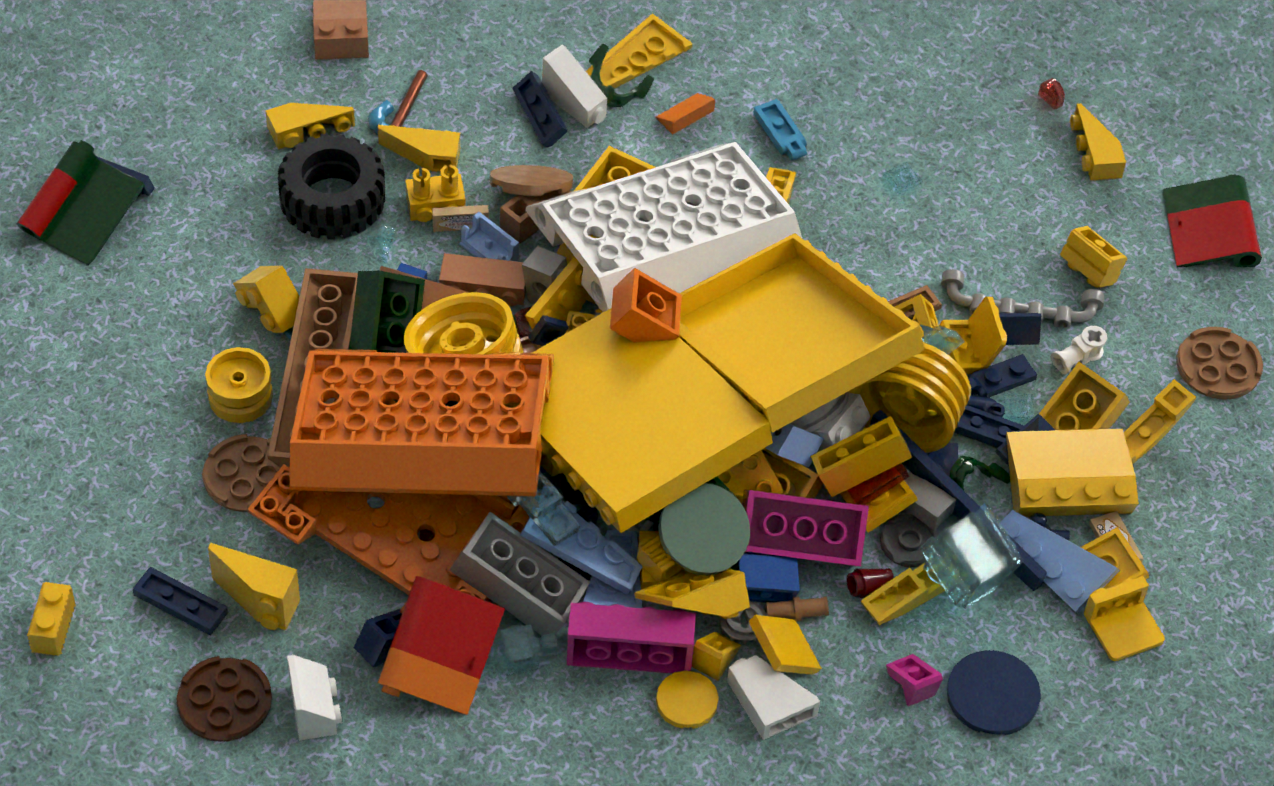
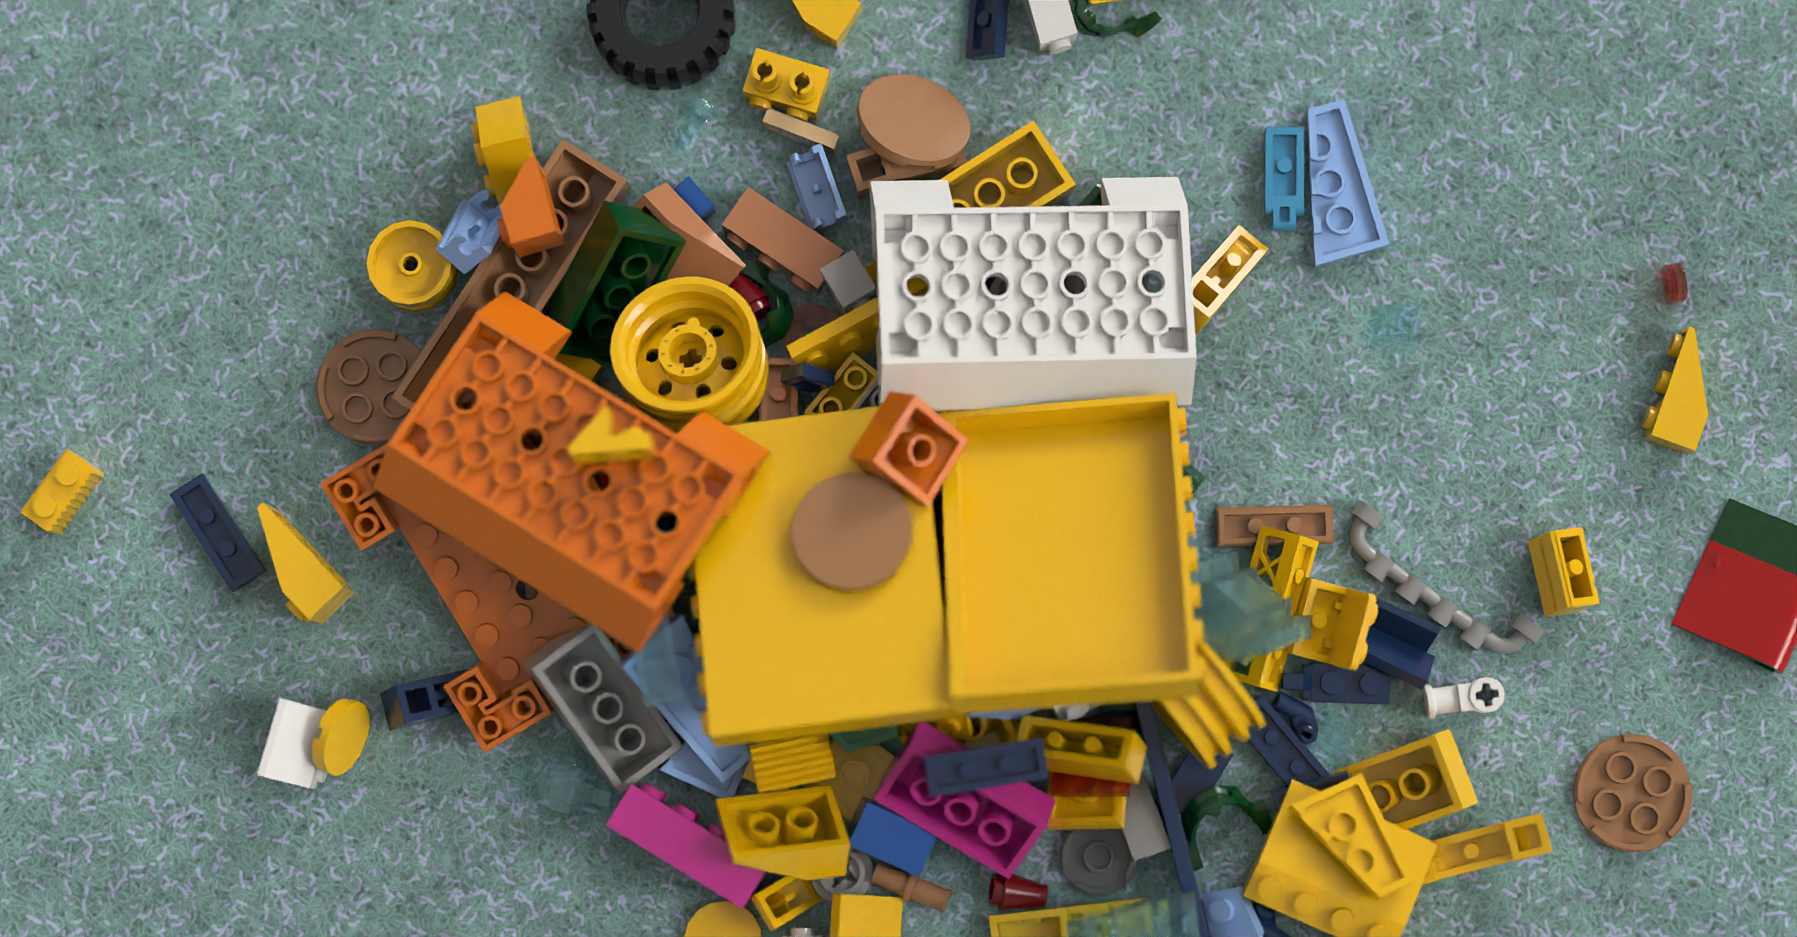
camera: 35 degrees right, 30 degrees up
(224, 698) = (212, 683): reddish brown tile -> none
(273, 344) = (470, 232): none -> light blue hinge
(313, 300) = (529, 213): none -> orange slope
(341, 679) = (342, 737): none -> yellow tile
(440, 645) = (465, 755): red door -> none
(446, 372) = (600, 444): none -> yellow slope
(638, 368) = (852, 532): none -> medium nougat tile
(686, 112) = (1178, 87): orange slope -> none
(705, 530) = (832, 775): sand green tile -> none
(807, 480) = (985, 767): none -> dark blue plate
(821, 125) = (1341, 194): none -> light blue wing
(1027, 347) = (1398, 658): none -> dark blue tile
(1069, 435) = (1357, 835): none -> yellow wing

